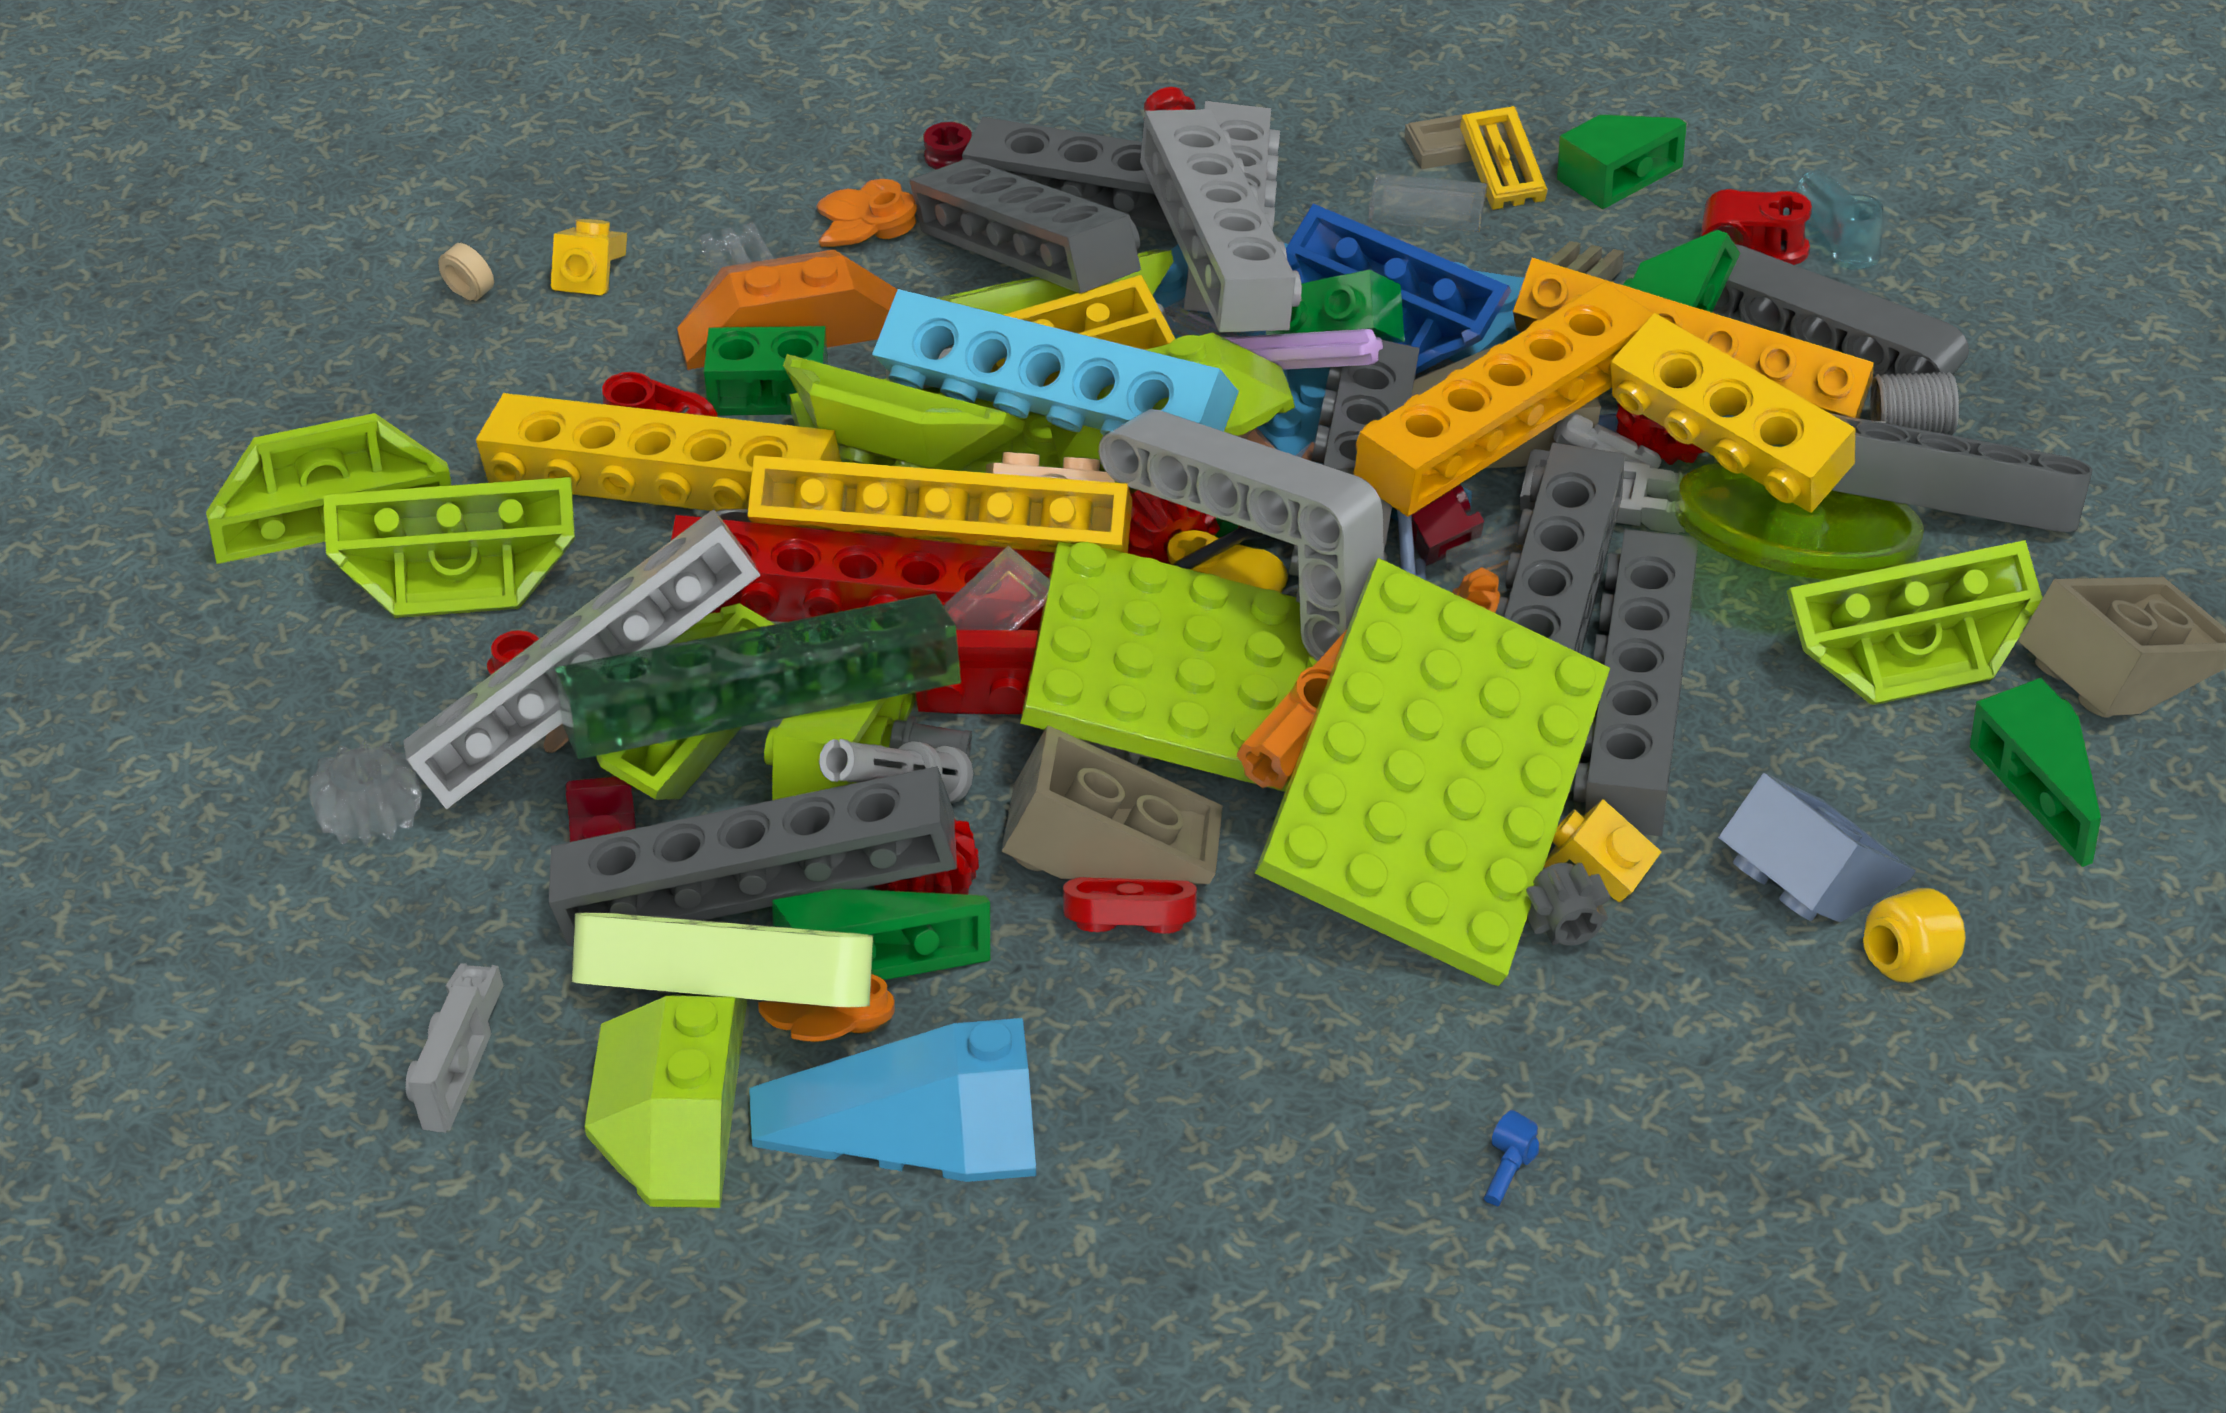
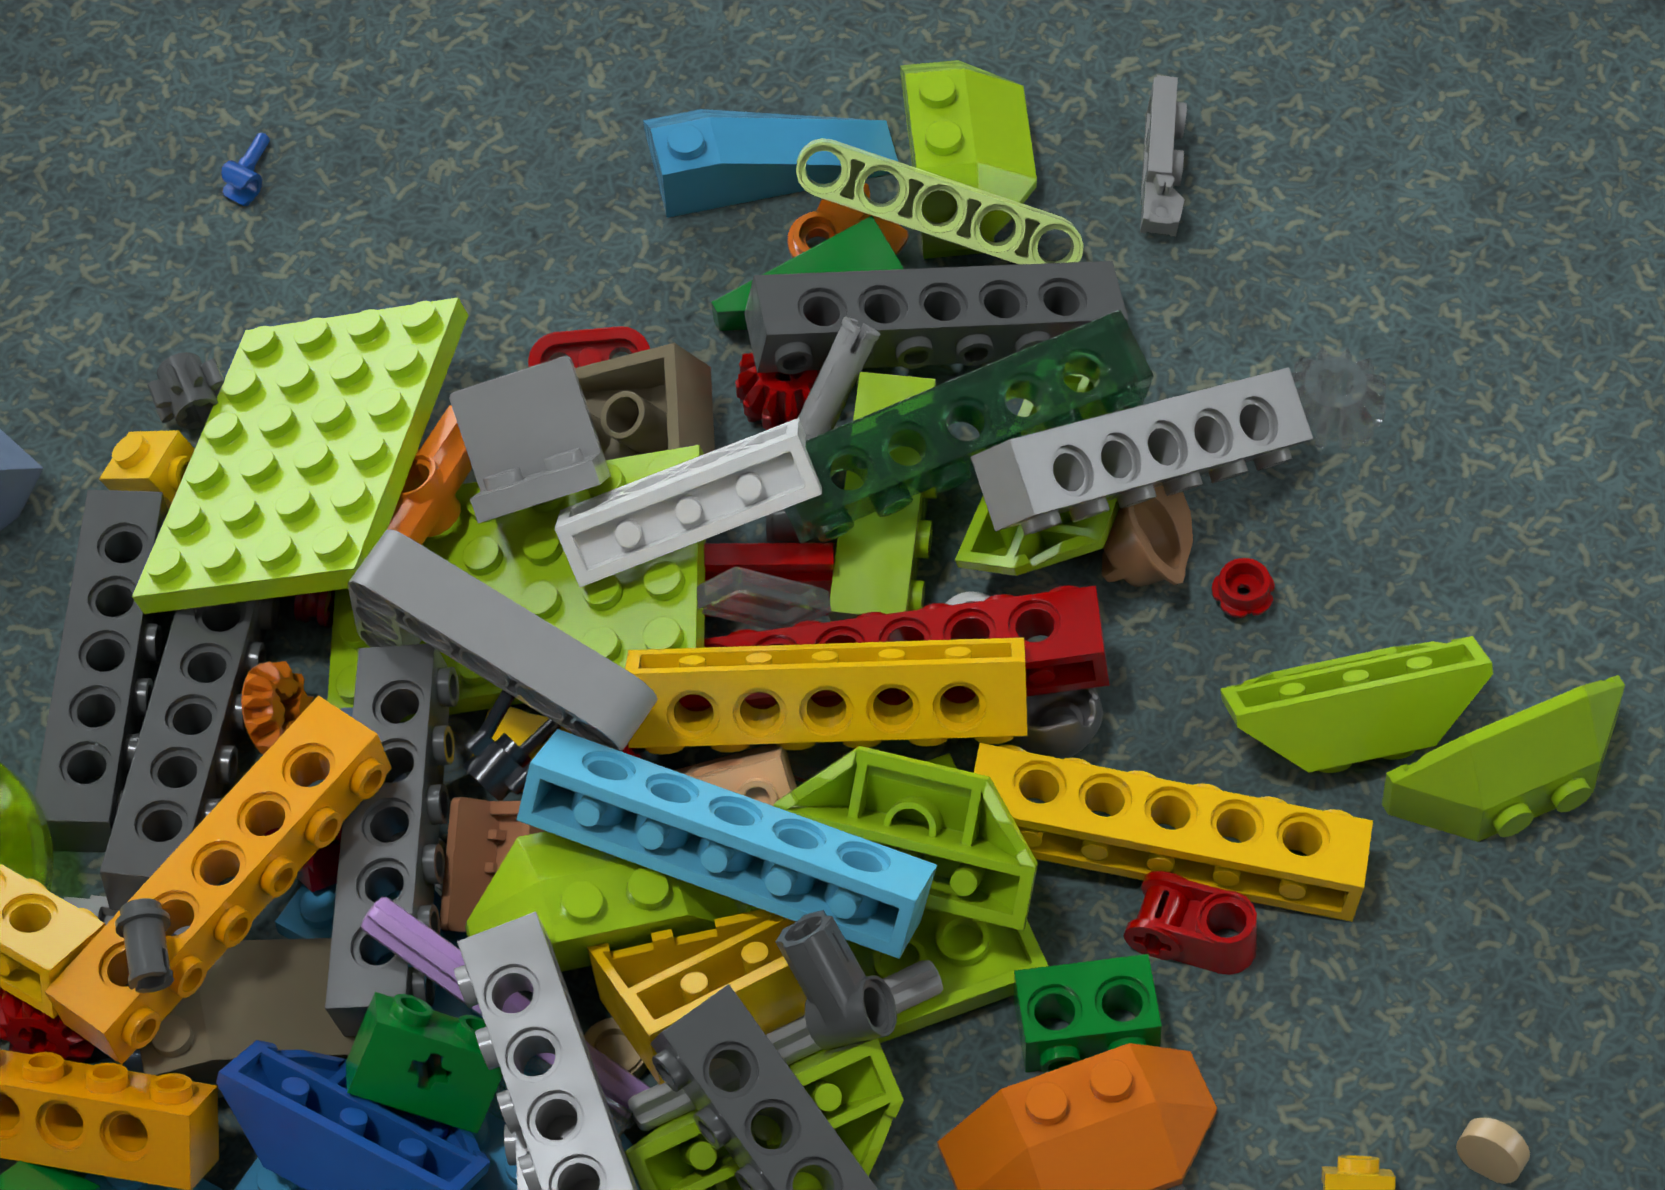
camera: 175 degrees right, 15 degrees up
(985, 287) = (841, 1001): none -> dark grey piece
(1050, 598) = (688, 503): none -> white fence
(1196, 672) = (528, 438): none -> light grey bracket
(1569, 312) = (143, 929): none -> dark grey pin

